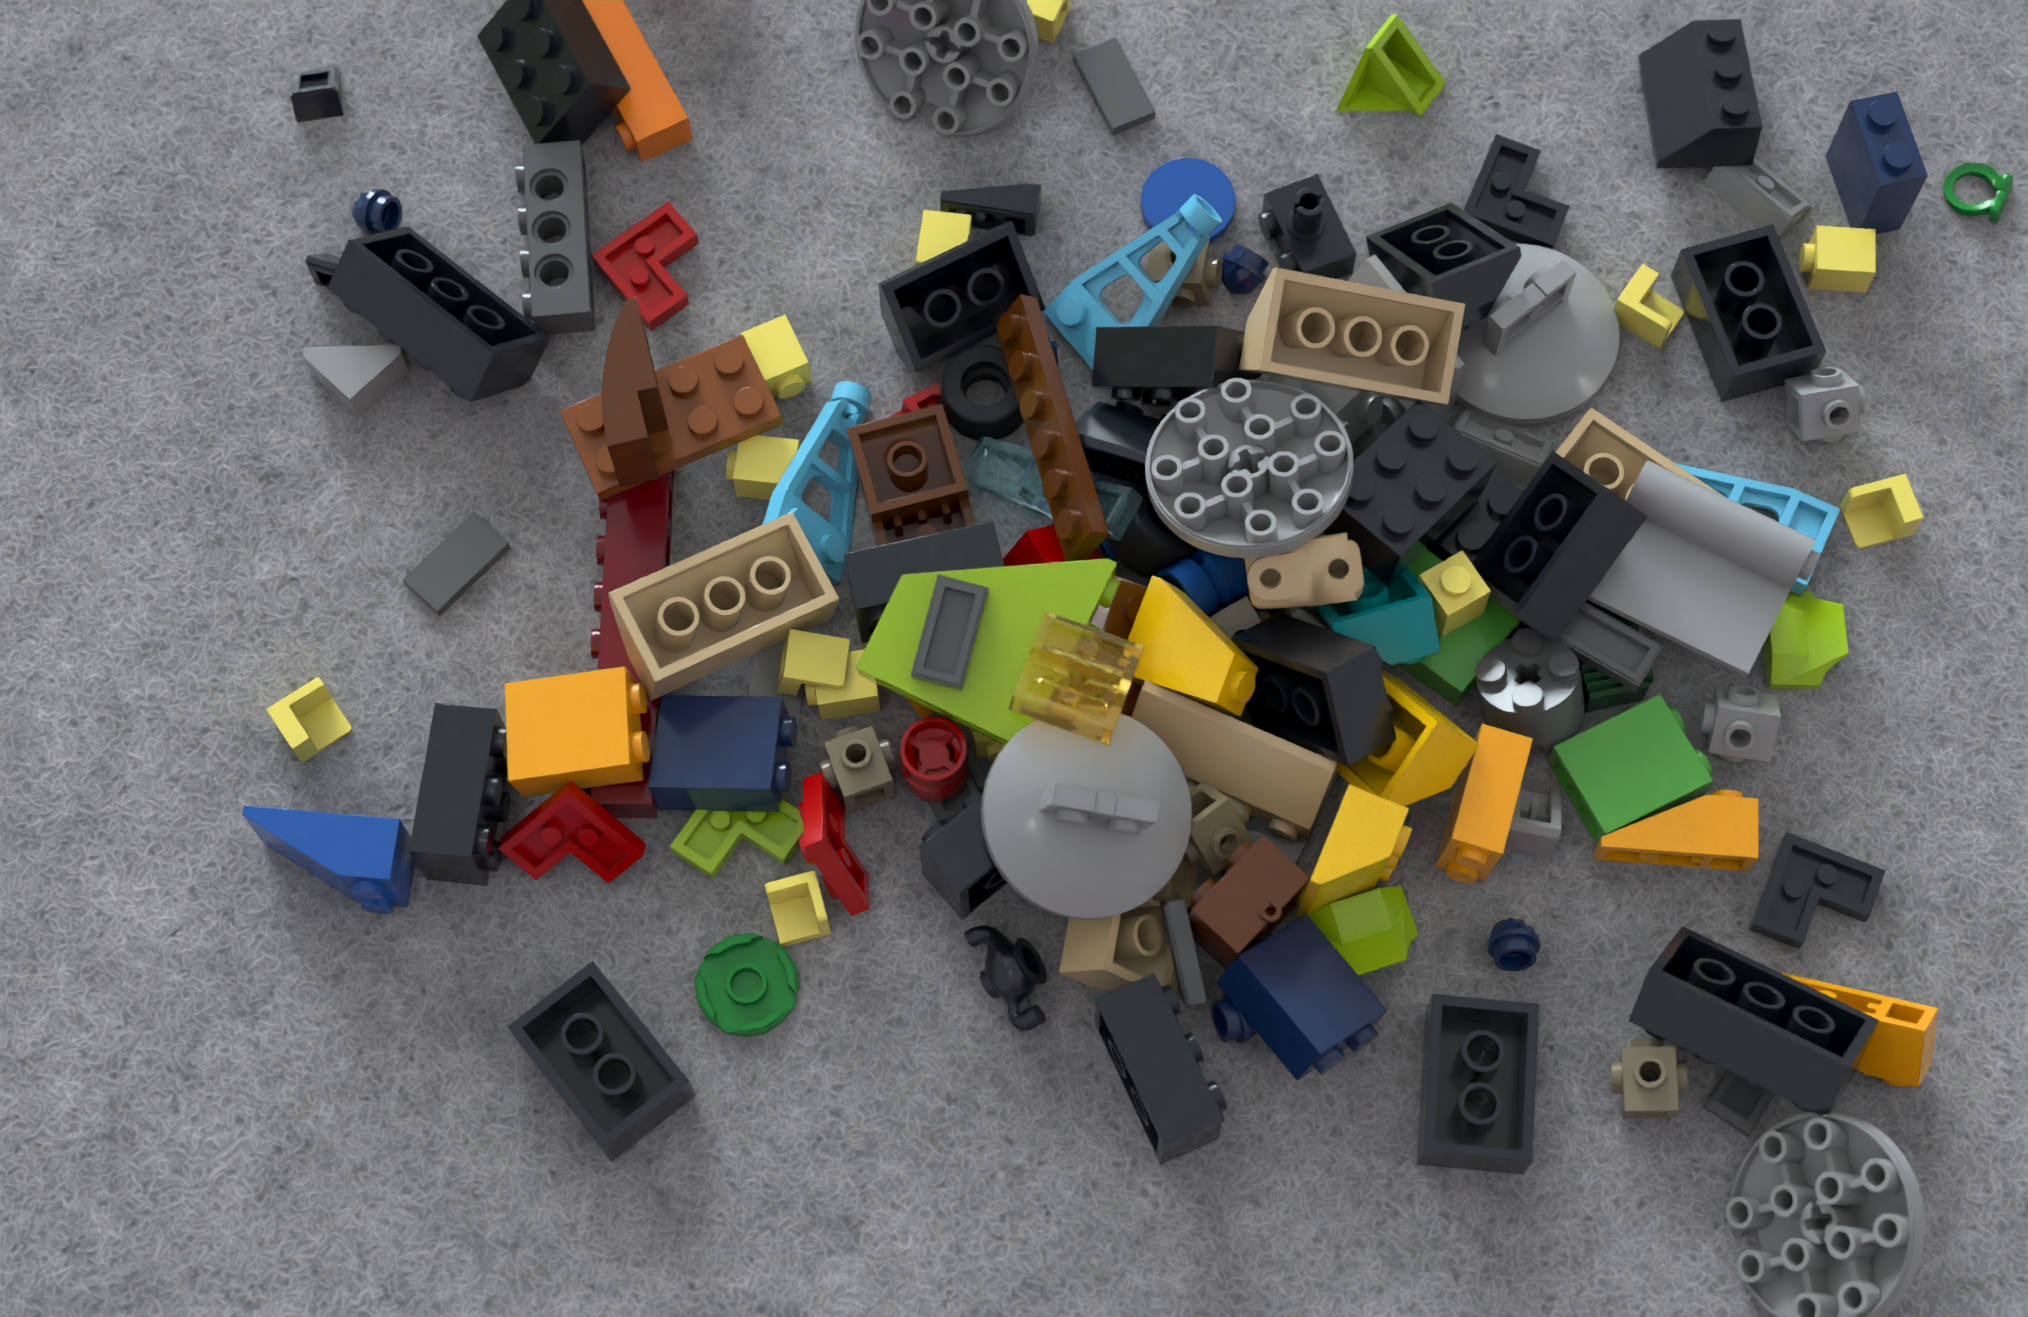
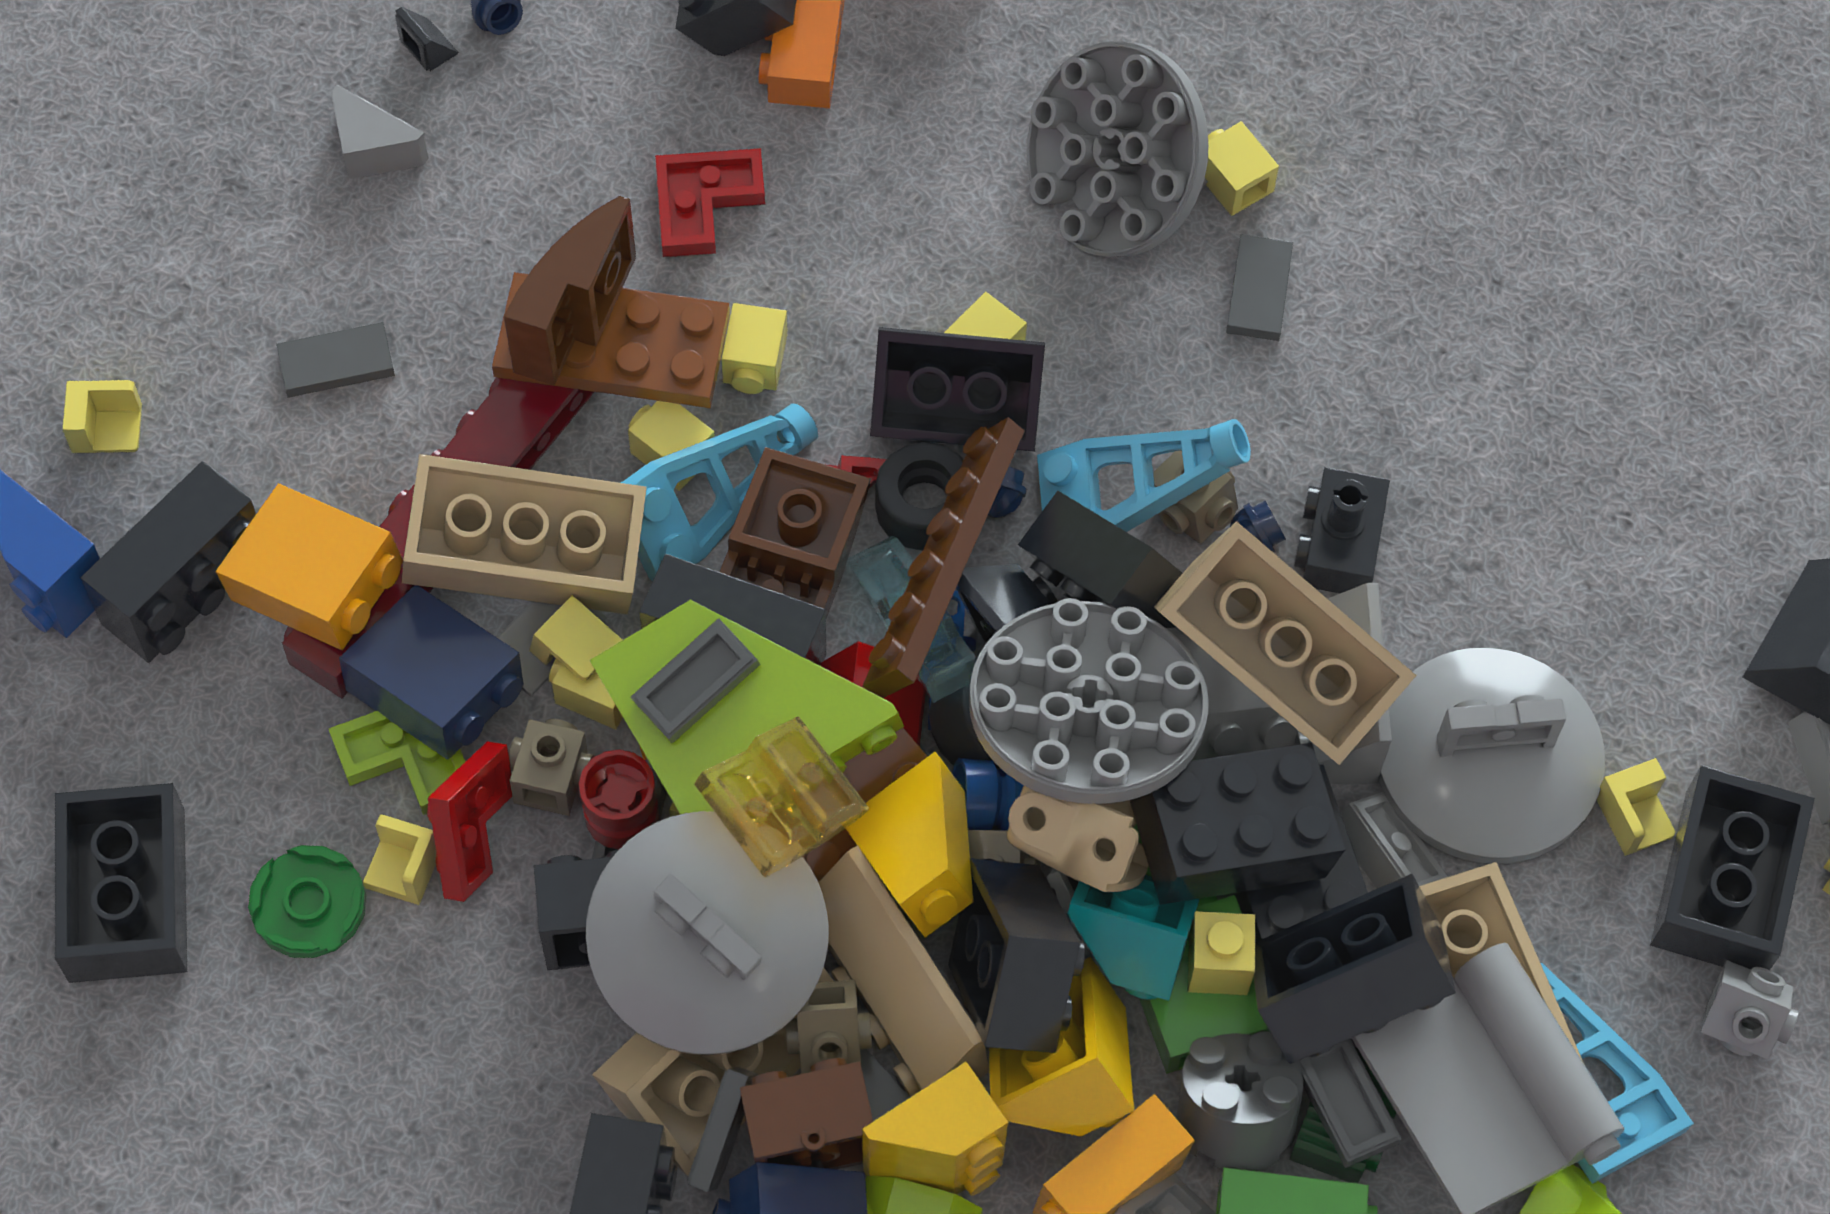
camera: 30 degrees right, 5 degrees down
(438, 313) = (475, 124): black brick -> none
(545, 171) = (667, 56): dark grey brick -> none
(572, 824) = (253, 652): red plate -> none
(997, 206) = (1068, 337): black slope -> none
(1011, 973) = (550, 1048): black piece -> none
(1177, 181) = (1272, 428): blue tile -> none
(1392, 74) = (1538, 432): lime slope -> none
(1448, 258) = (1448, 634): black slope -> none
(1505, 204) = (1564, 617): black plate -> none
(1881, 511) = (1735, 1152): light yellow panel -> none

